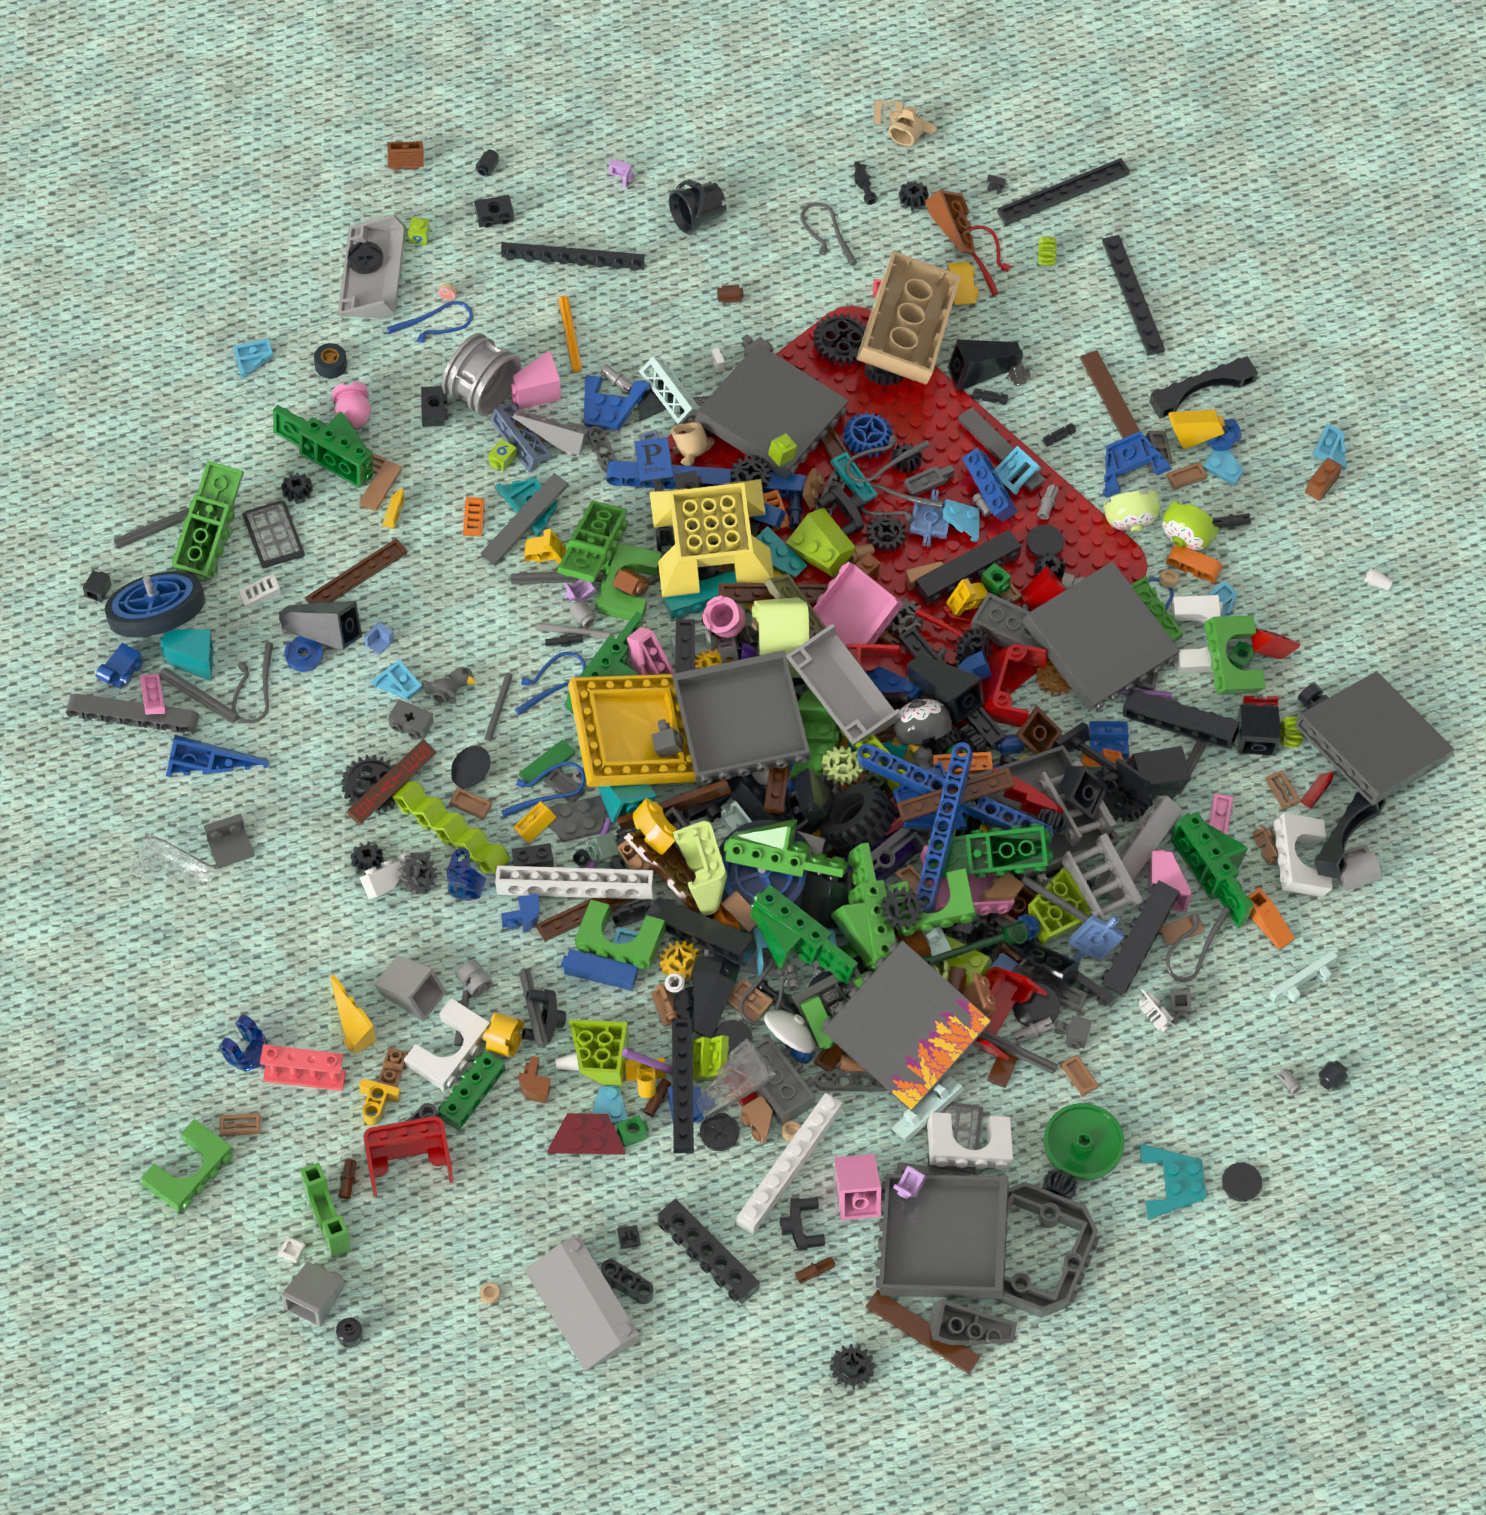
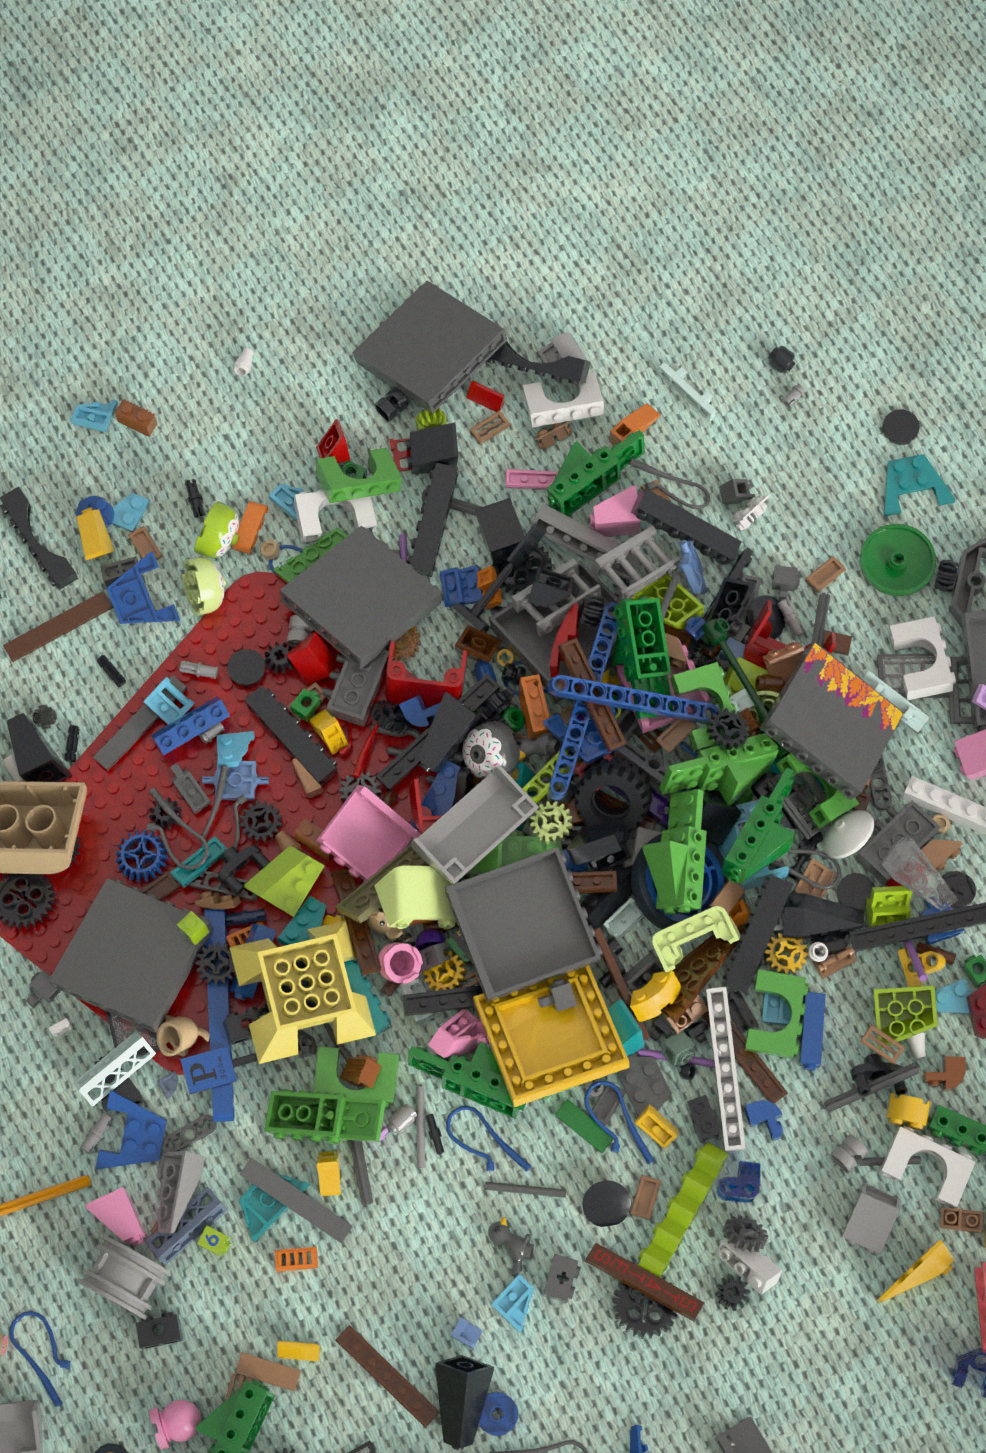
camera: 95 degrees left, 10 degrees up
(574, 1022) = (878, 1051): none -> medium nougat tile

